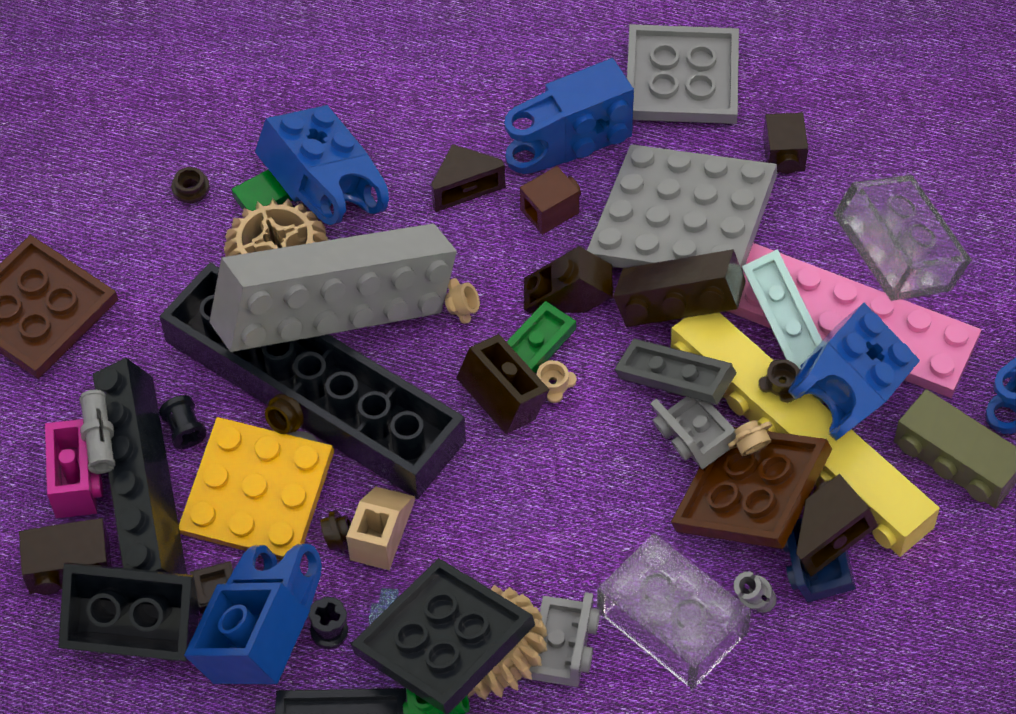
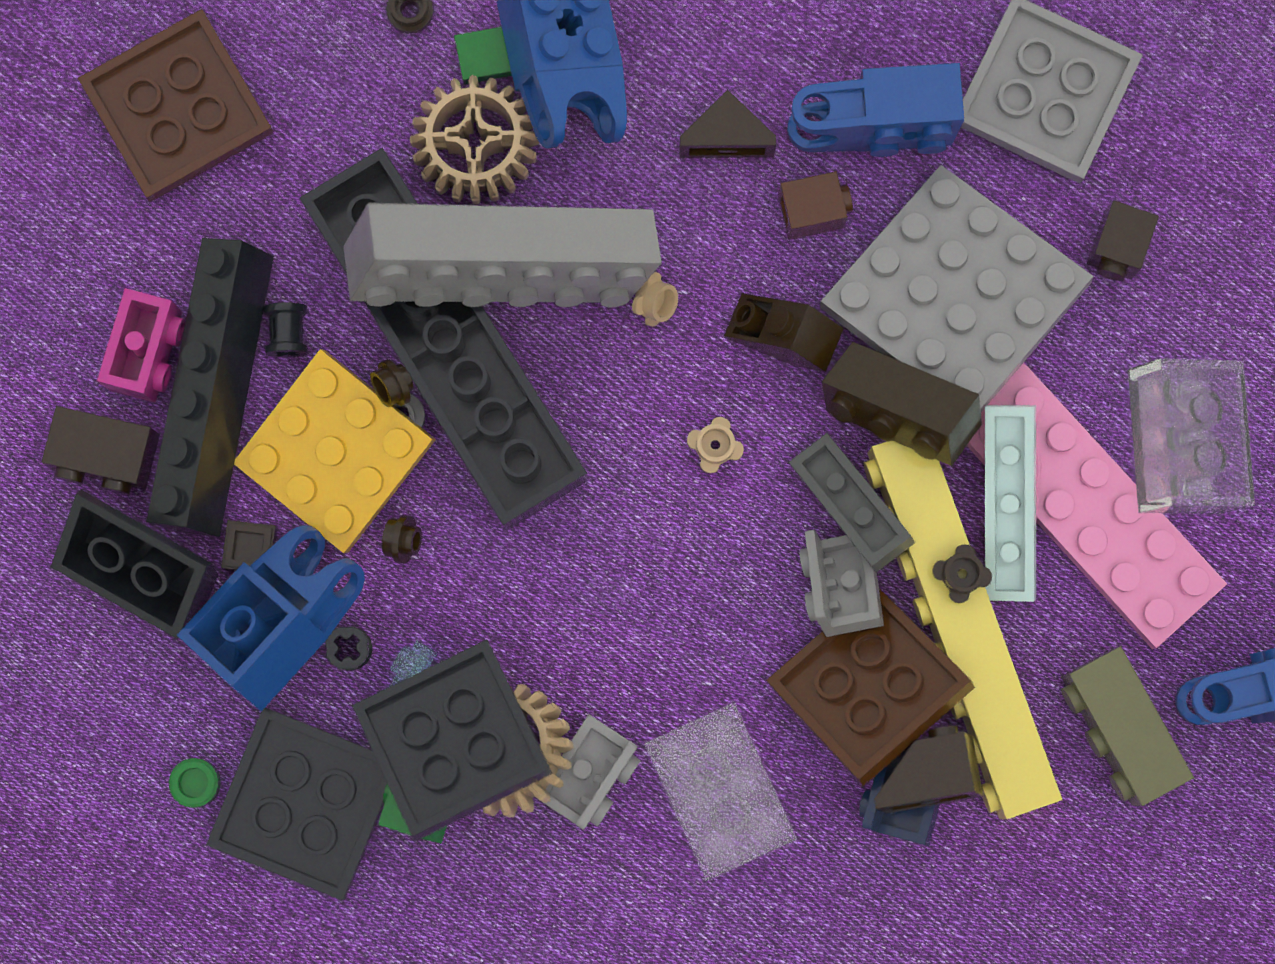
camera: 20 degrees right, 25 degrees up
(97, 431) = (175, 327): light grey pin -> none
(378, 527) = (450, 552): tan slope -> none
(502, 383) = (652, 435): dark brown brick -> none
(542, 335) = (717, 387): green plate -> none
(751, 437) = (891, 636): tan plate -> none
(758, 587) = (812, 817): light grey pin -> none
(855, 369) = (1045, 599): blue brick -> none

